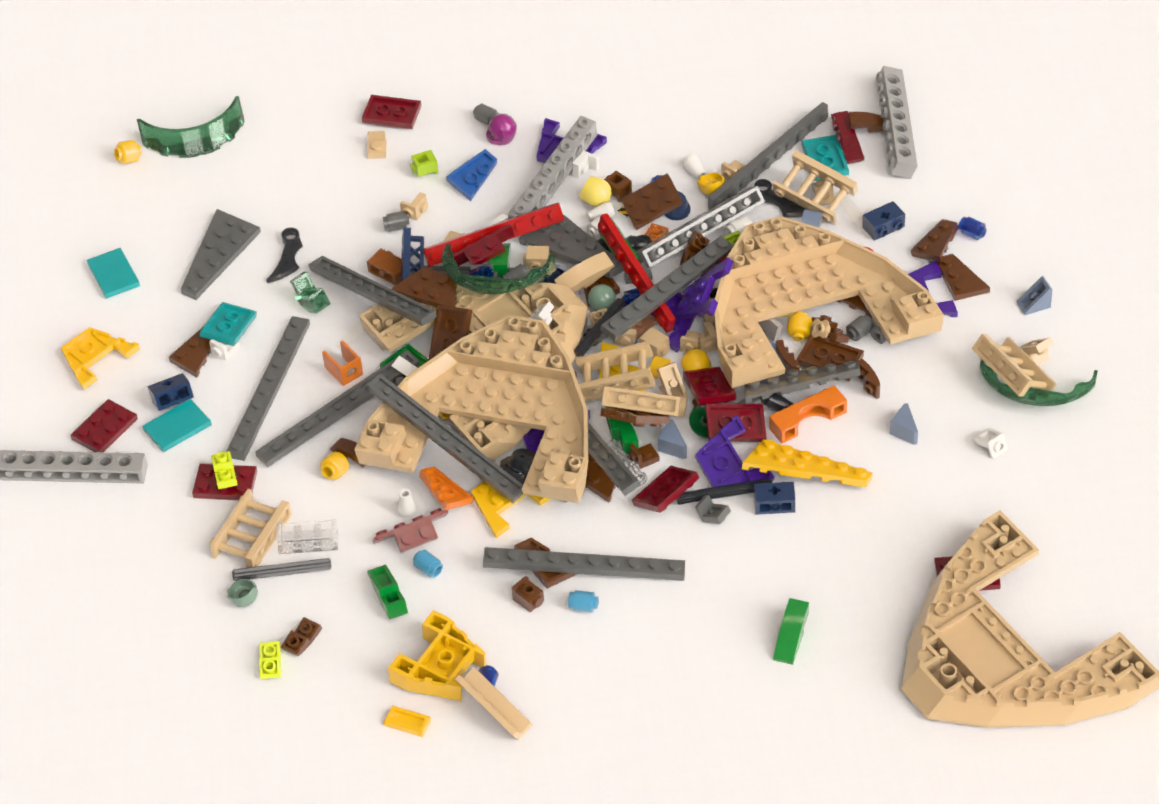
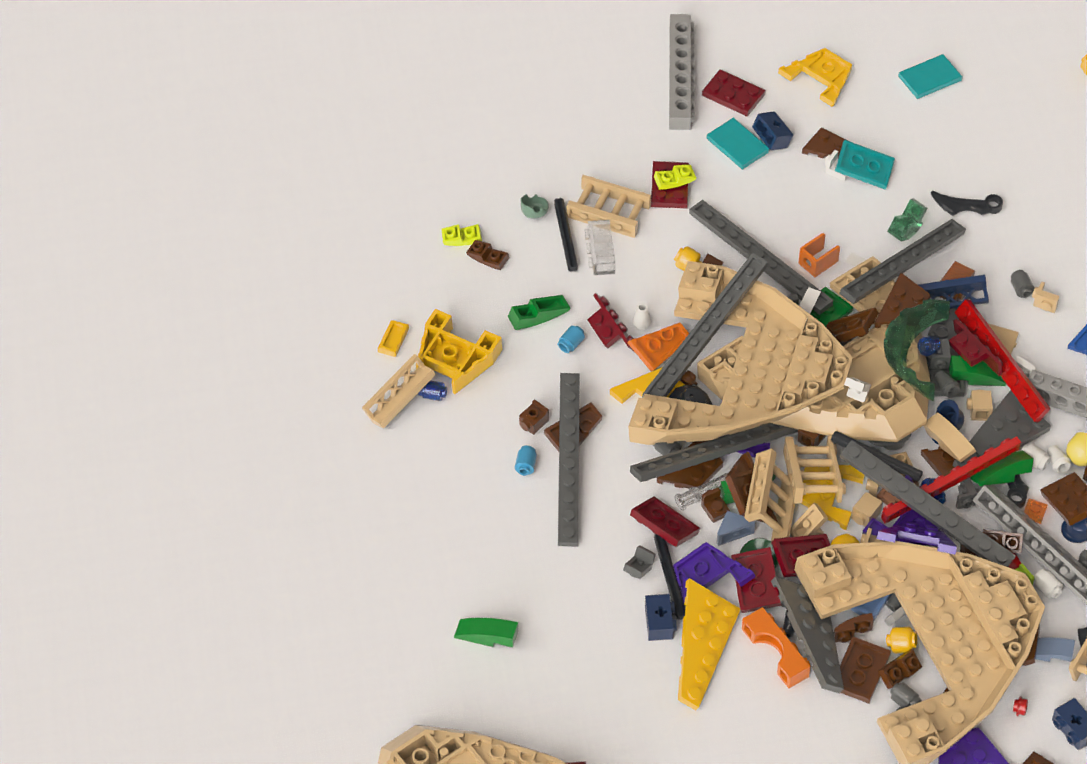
camera: 85 degrees right, 5 degrees up
(221, 245) = (977, 153): dark grey wing -> none
(268, 388) = (790, 205): dark grey plate -> none
(601, 297) = (926, 459): sand green hair -> none
(825, 328) = (892, 654): tan plate -> none
(870, 379) = (825, 706): reddish brown slope -> none
(904, 426) = (766, 736): sand blue slope -> none

